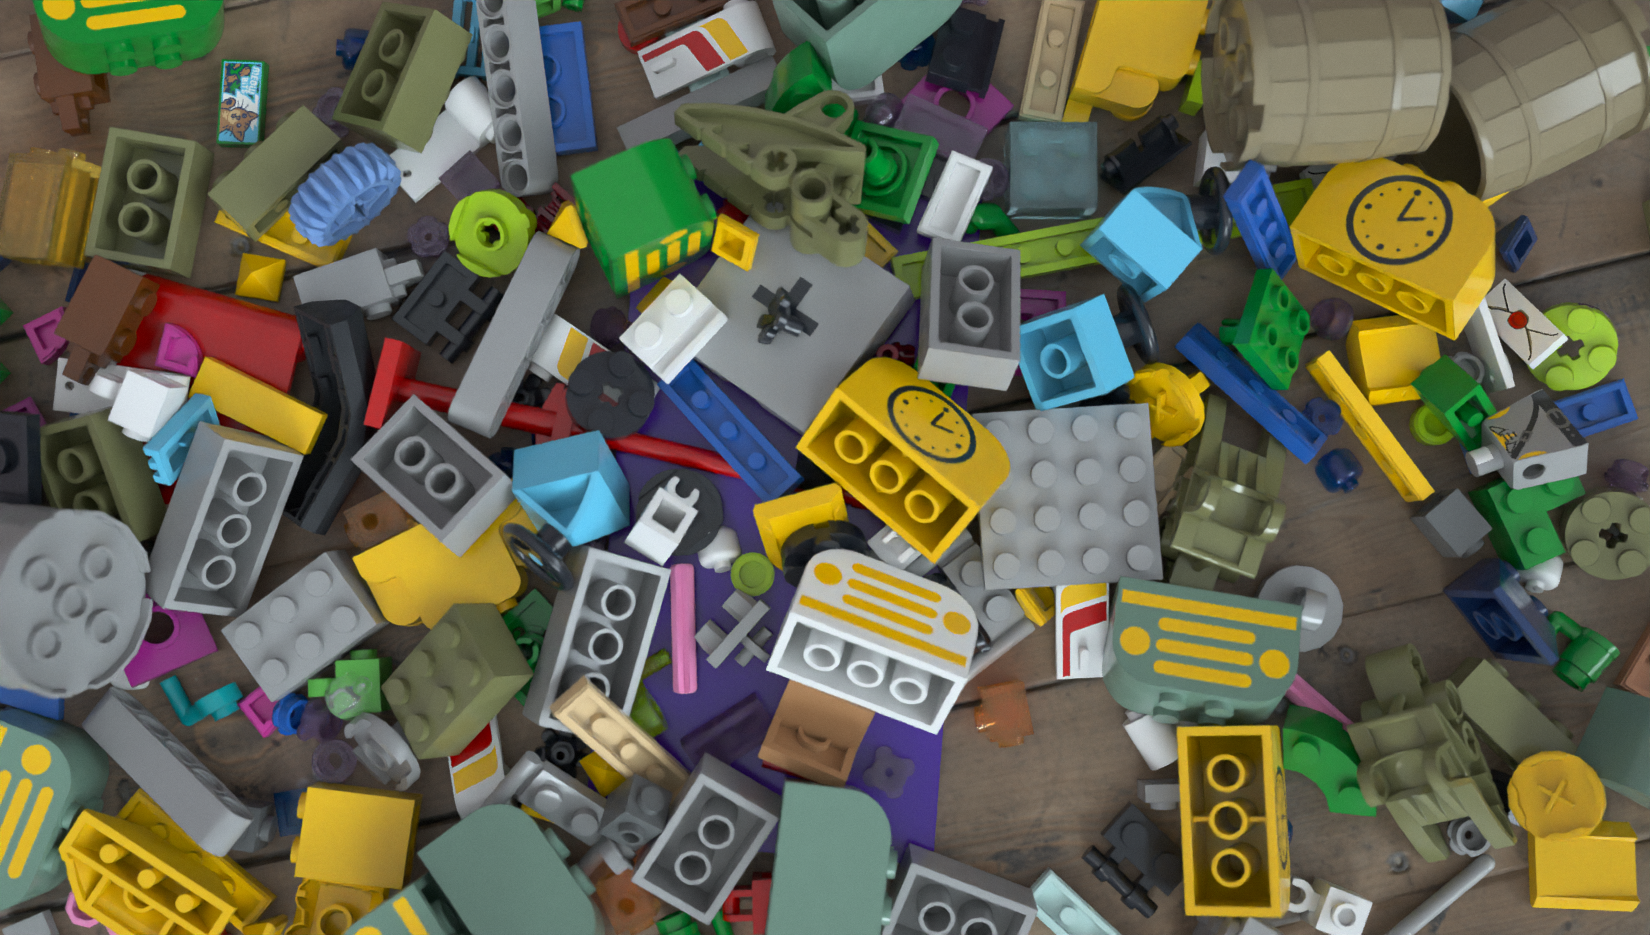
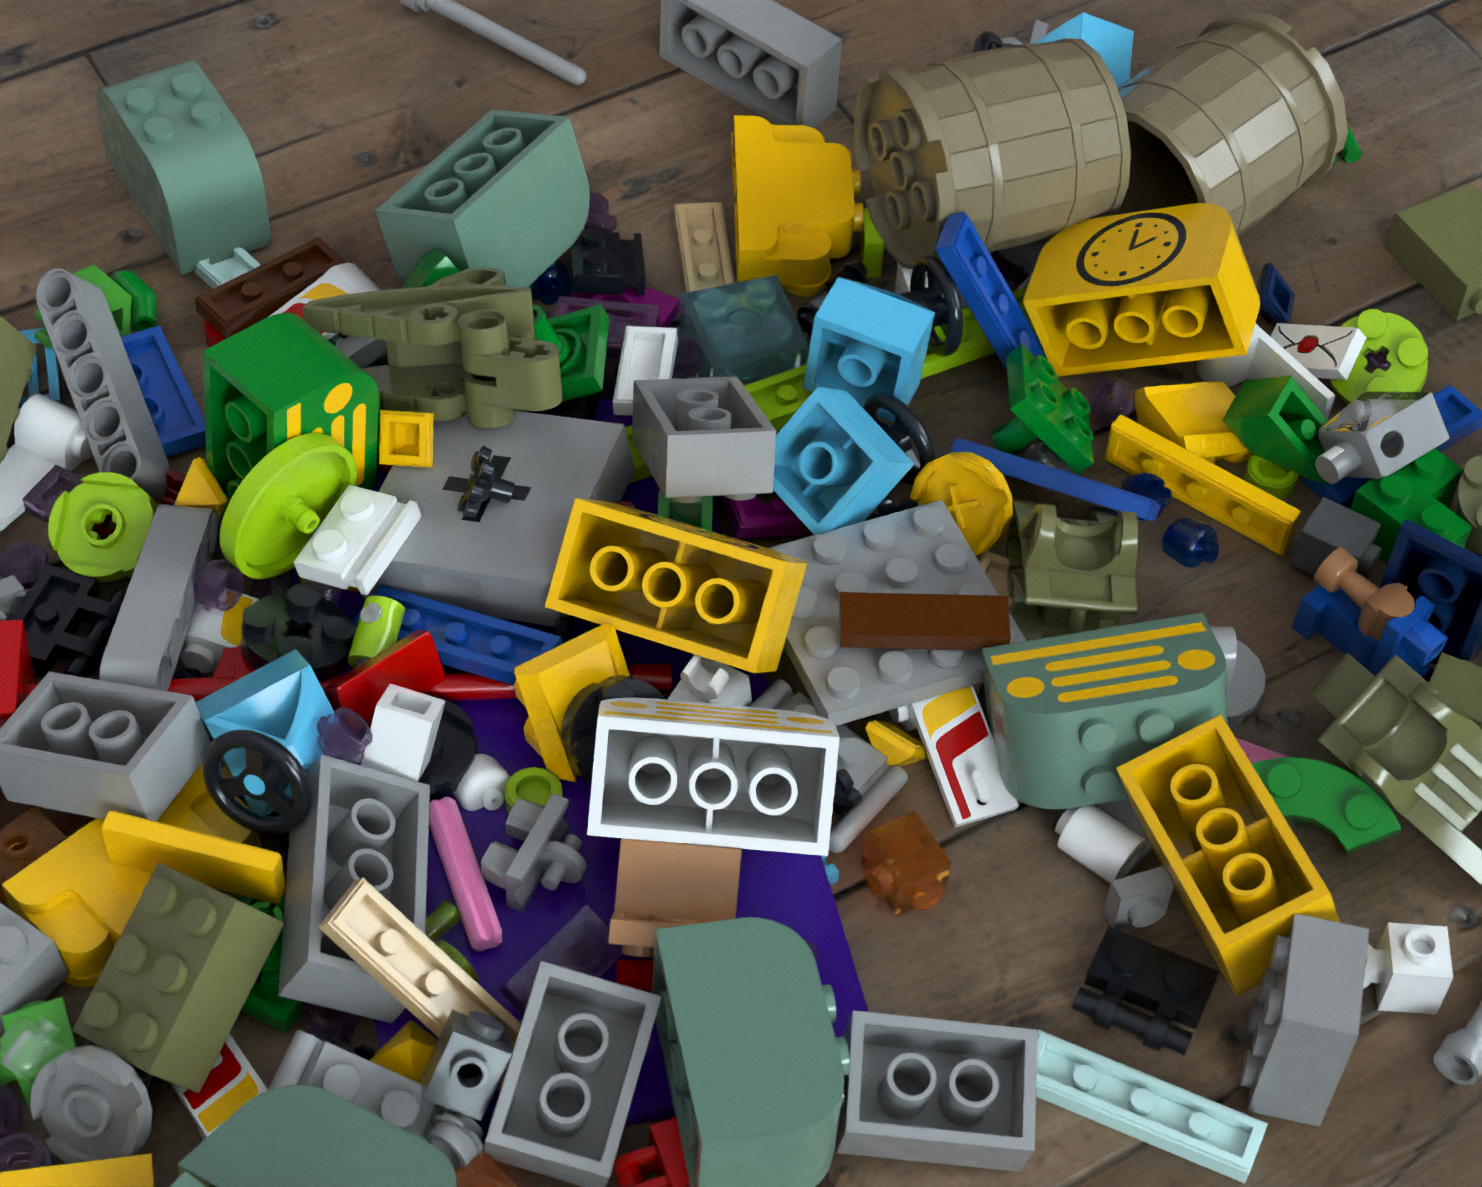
camera: 20 degrees left, 35 degrees down
(485, 589) = (203, 857): none -> yellow tile
(561, 330) = (218, 585): none -> clear purple plate
(620, 532) = (344, 735): none -> clear purple plate
(624, 291) = (284, 503): none -> lime piece
(661, 463) = (408, 664): none -> red slope
(664, 423) = (376, 629): none -> lime piece
(1086, 536) = (923, 621): none -> reddish brown tile
(1448, 624) = (1369, 619): none -> blue hips

